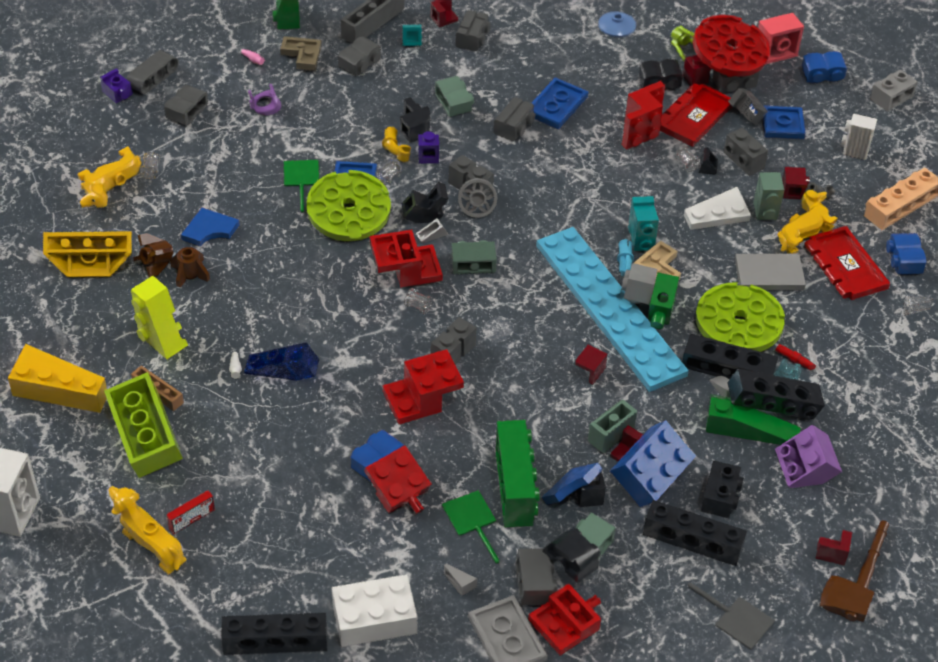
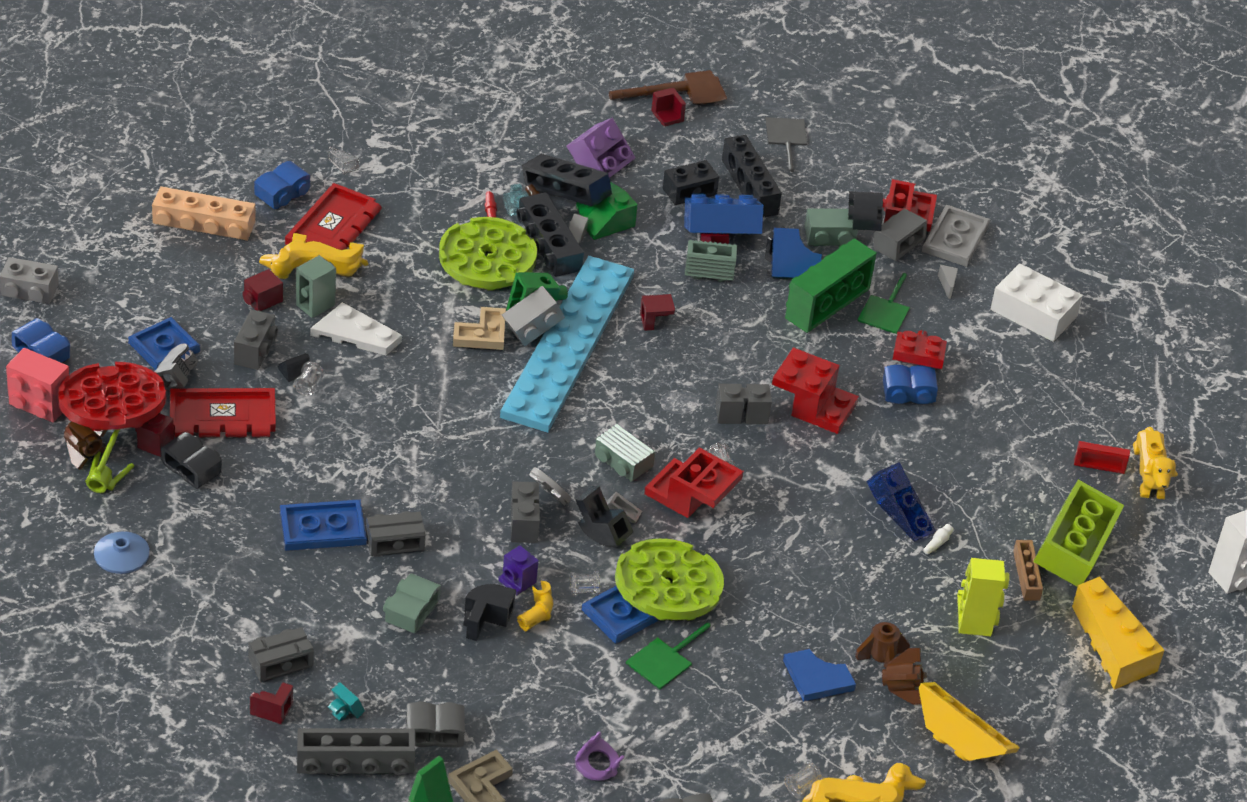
camera: 135 degrees left, 5 degrees down
(274, 633) = (1124, 341): black brick -> none
(625, 256) = (499, 356): medium azure axle -> none
(643, 115) = (289, 425): red bracket -> none
(643, 223) = (453, 349): teal hips -> none
(770, 271) = (403, 263): light grey tile -> none
(817, 188) = (251, 269): dark grey arm -> none
(859, 136) = (150, 262): white brick -> none

